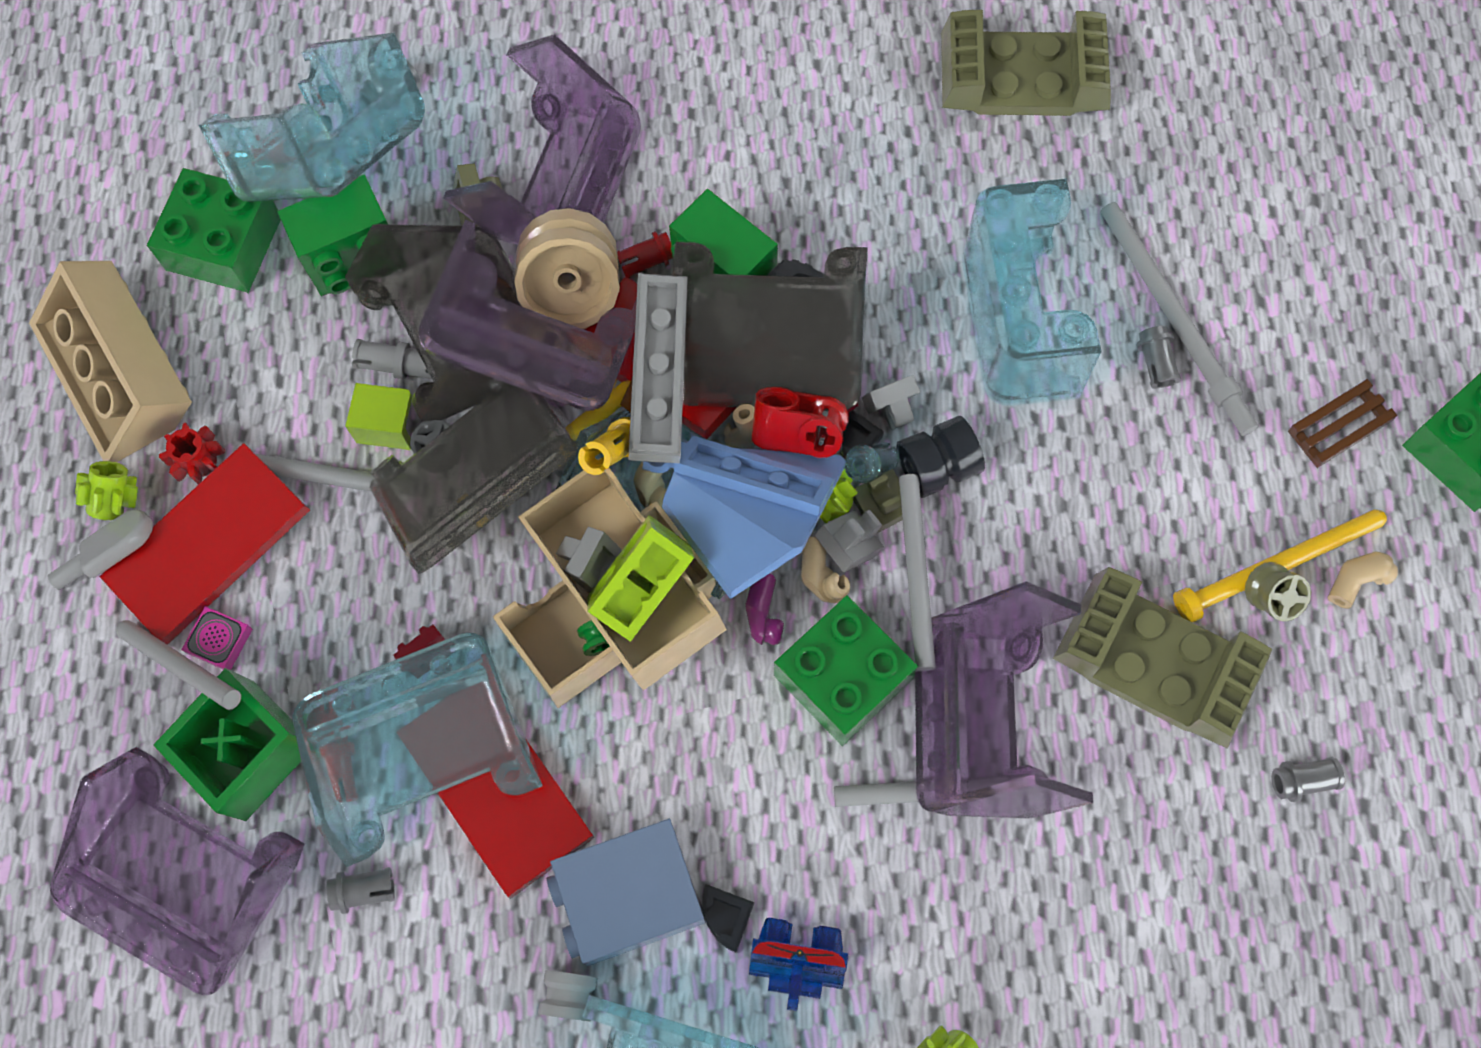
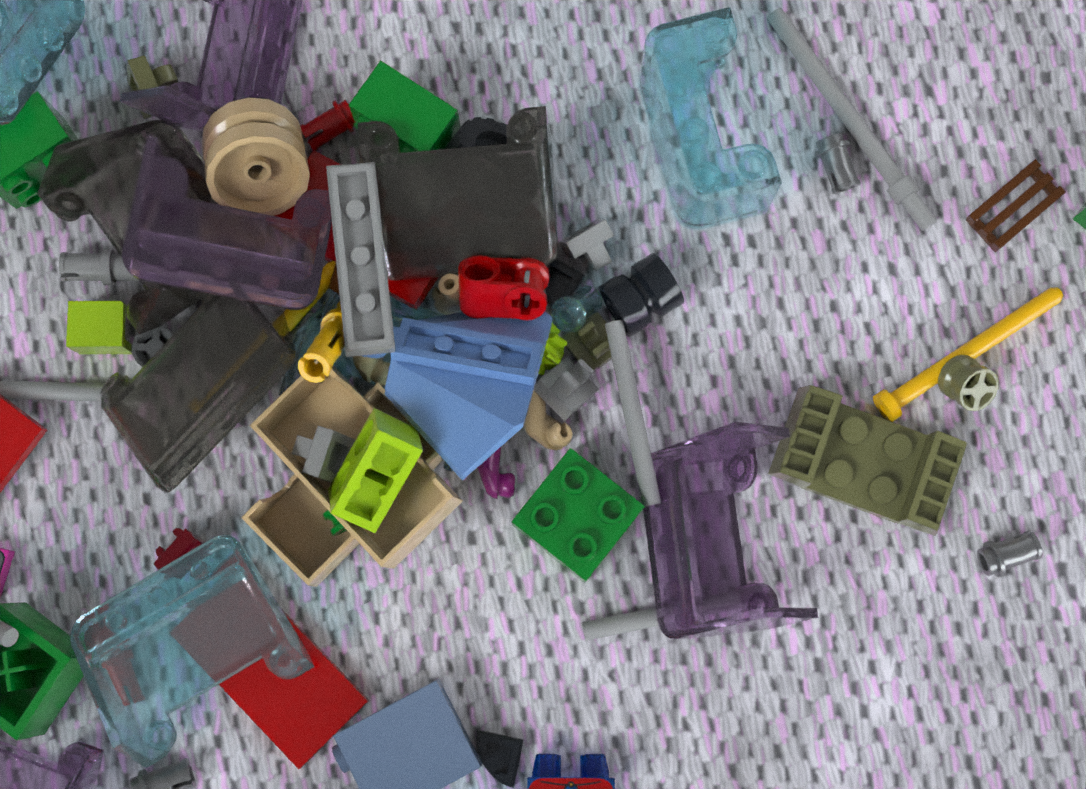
camera: 10 degrees left, 10 degrees up
(1358, 571) = (1041, 350): tan arm -> none

